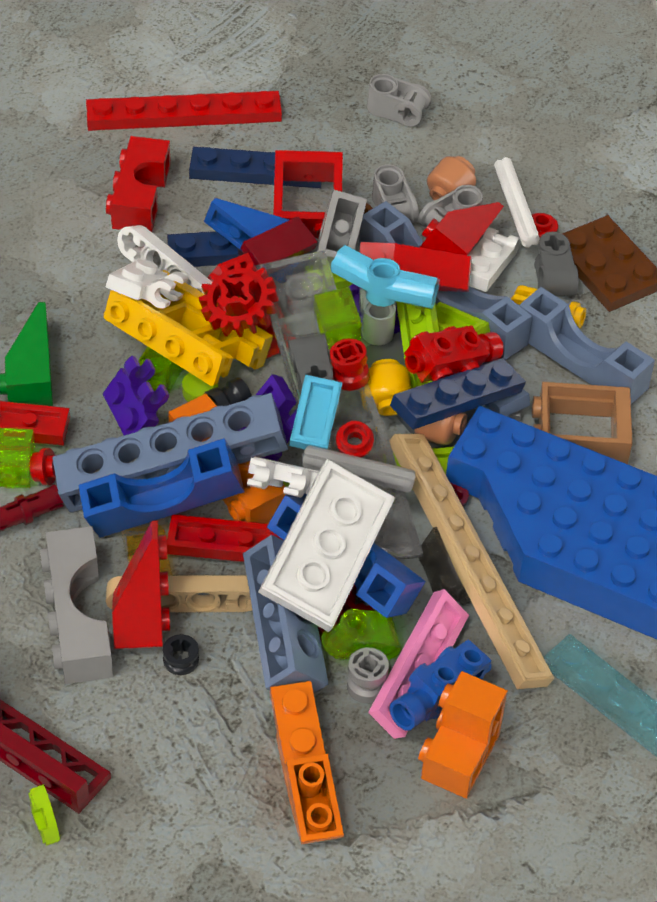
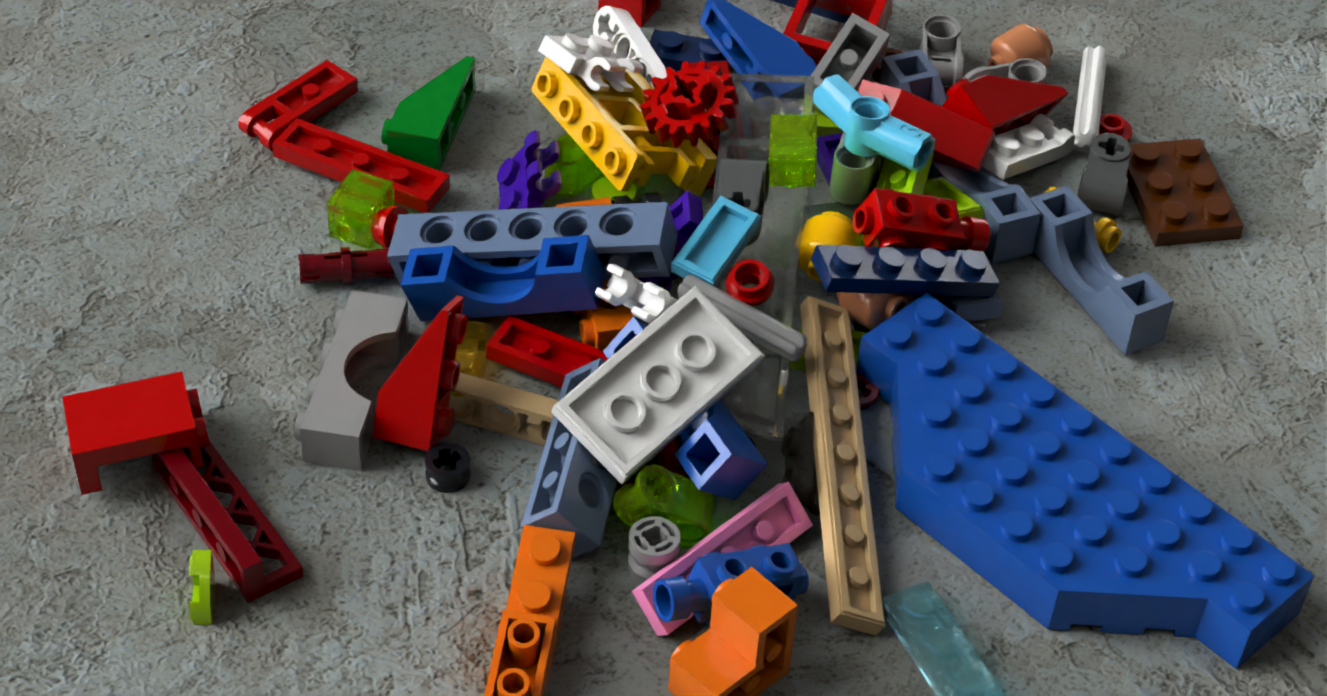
camera: 20 degrees right, 5 degrees down
(280, 242) = (771, 58): dark red tile -> none
(350, 364) = (784, 204): red wheel -> none
(589, 401) = (1070, 330): medium nougat window -> none

